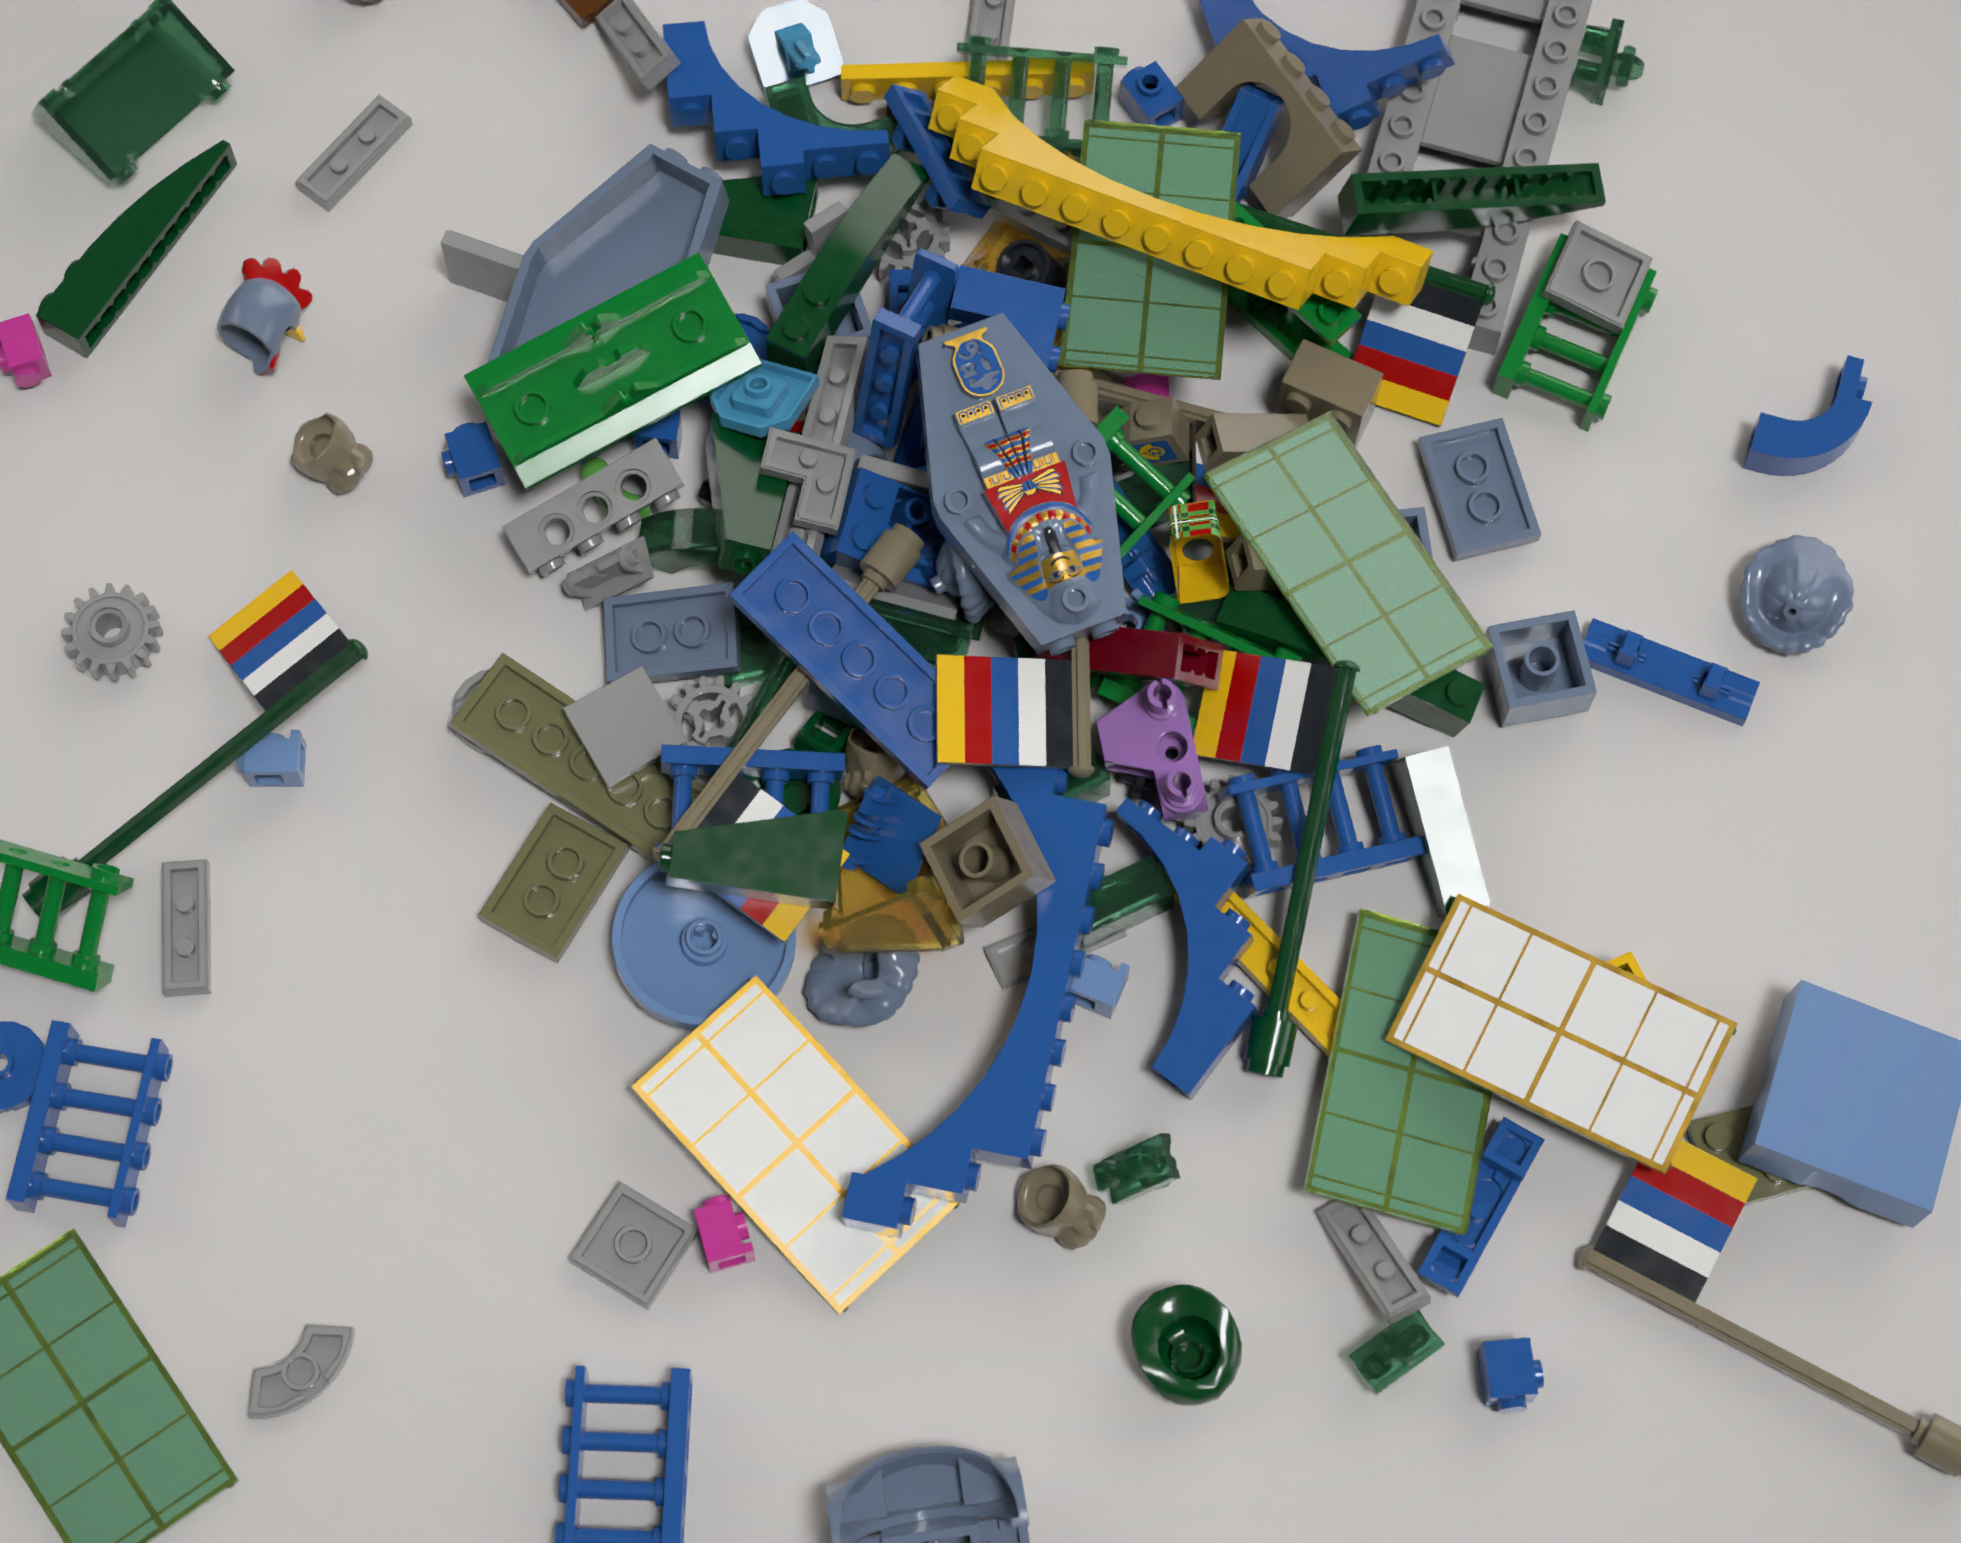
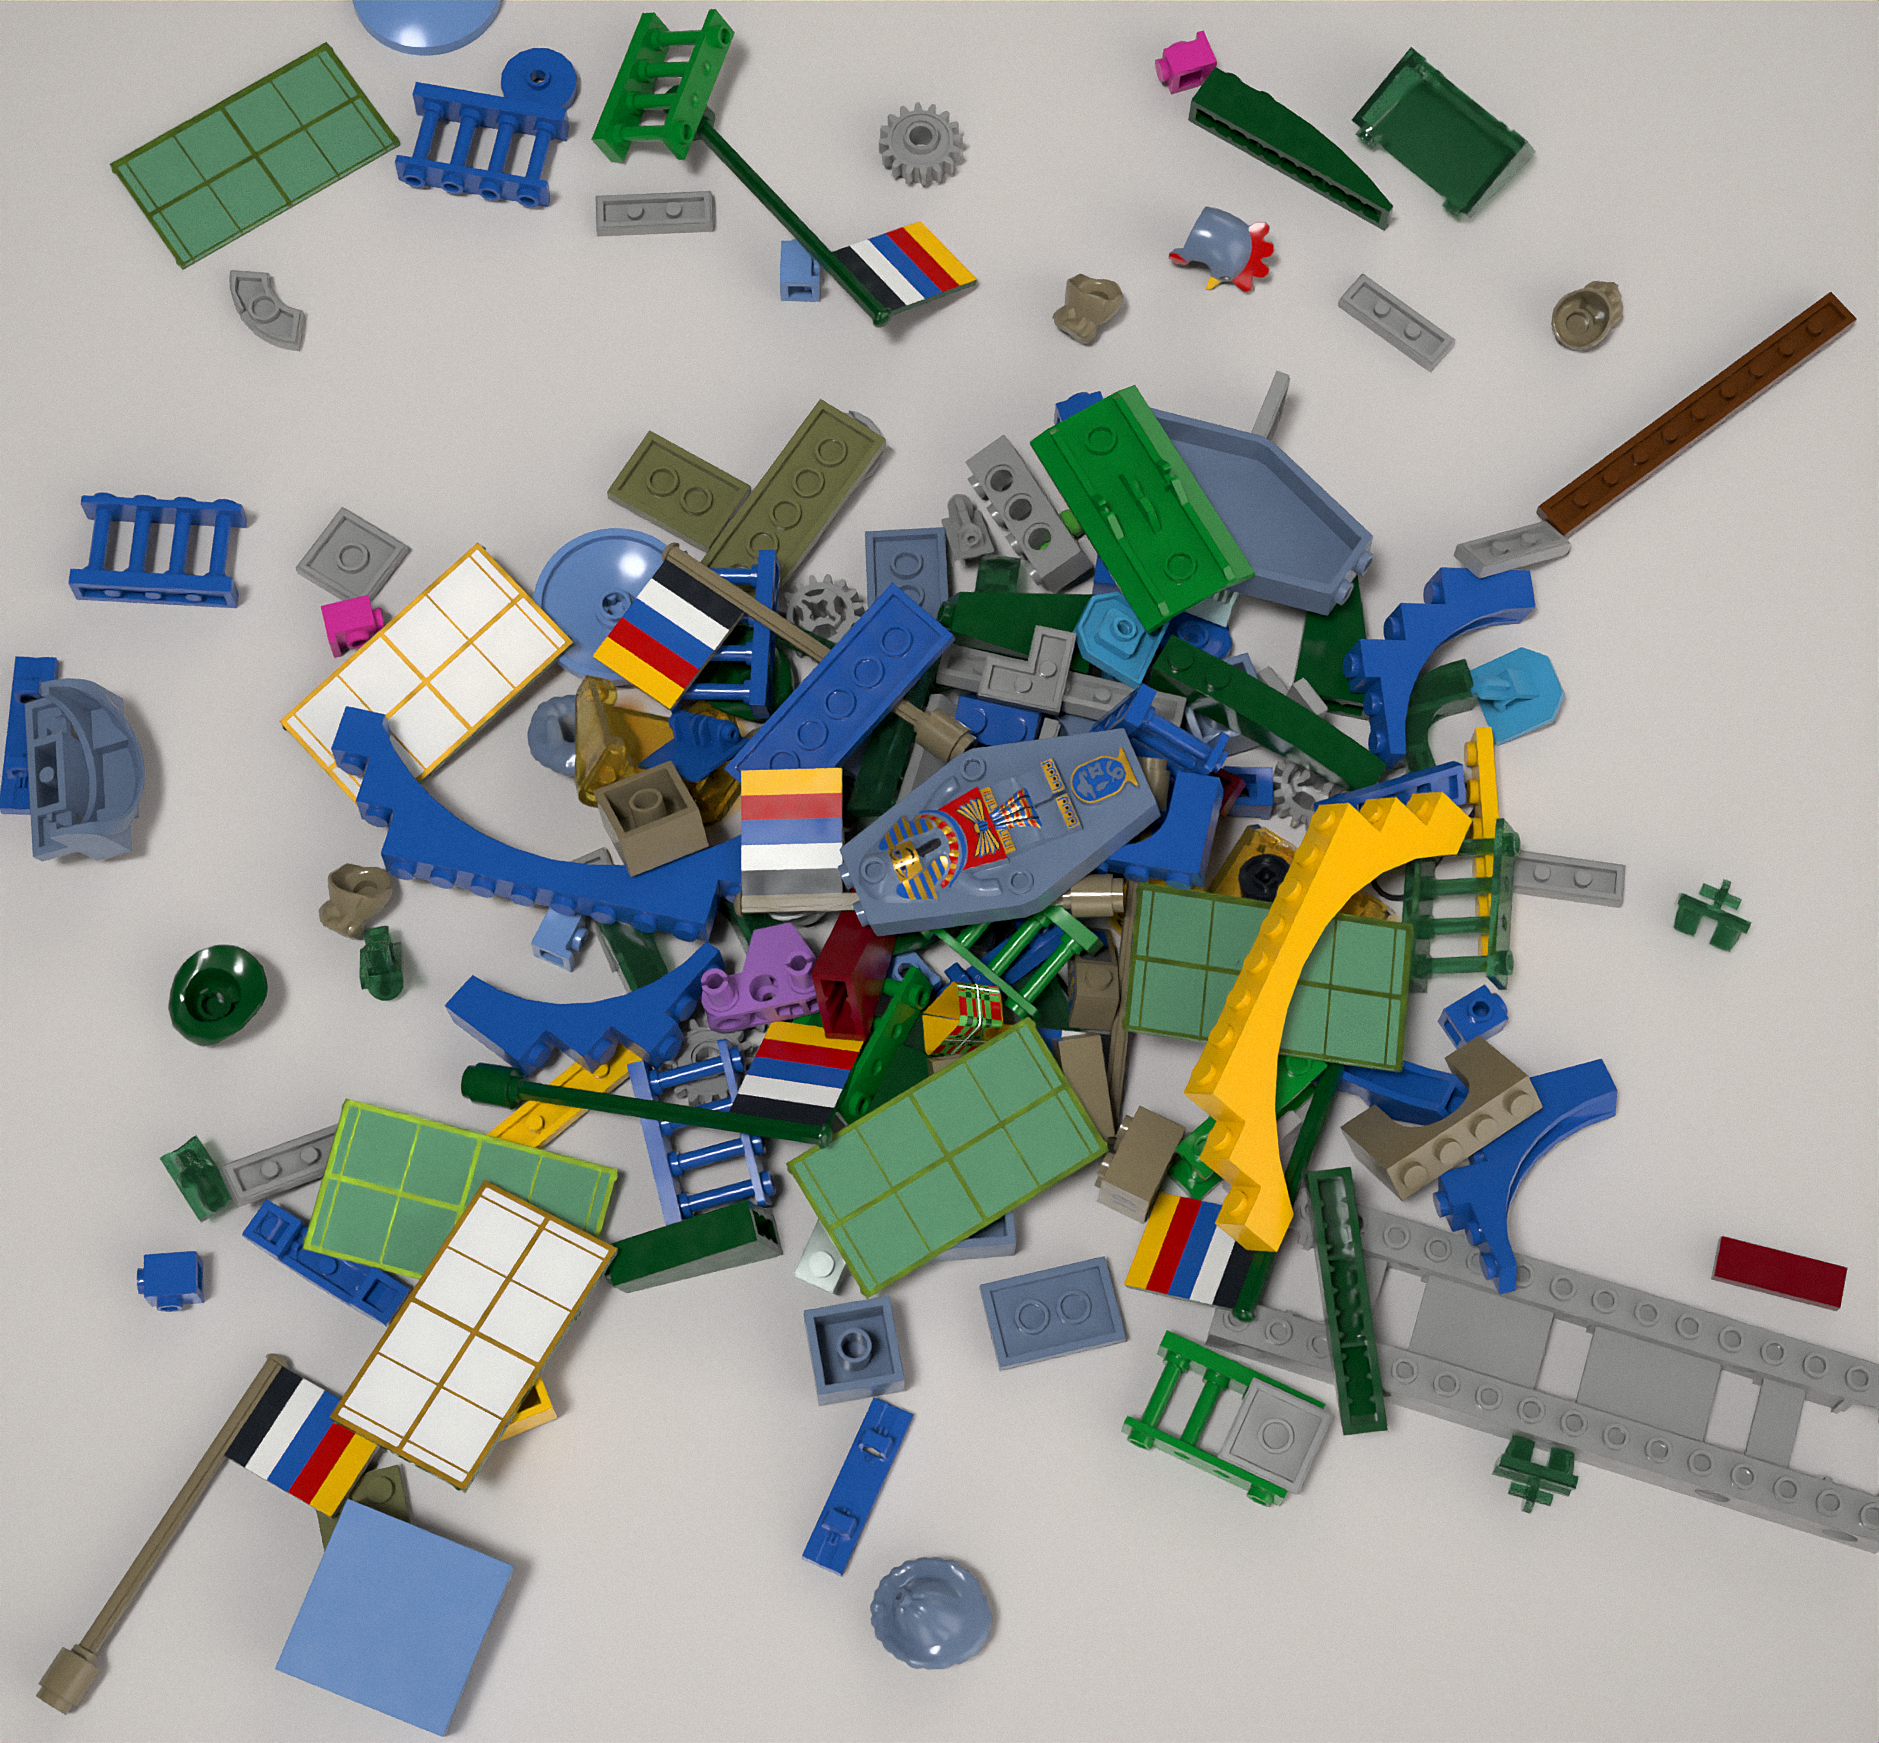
camera: 90 degrees right, 0 degrees up
(623, 726) = (812, 538): light grey tile -> none
(766, 859) = (655, 629): dark green slope -> none
(1805, 446) = (1103, 1661): blue arch -> none

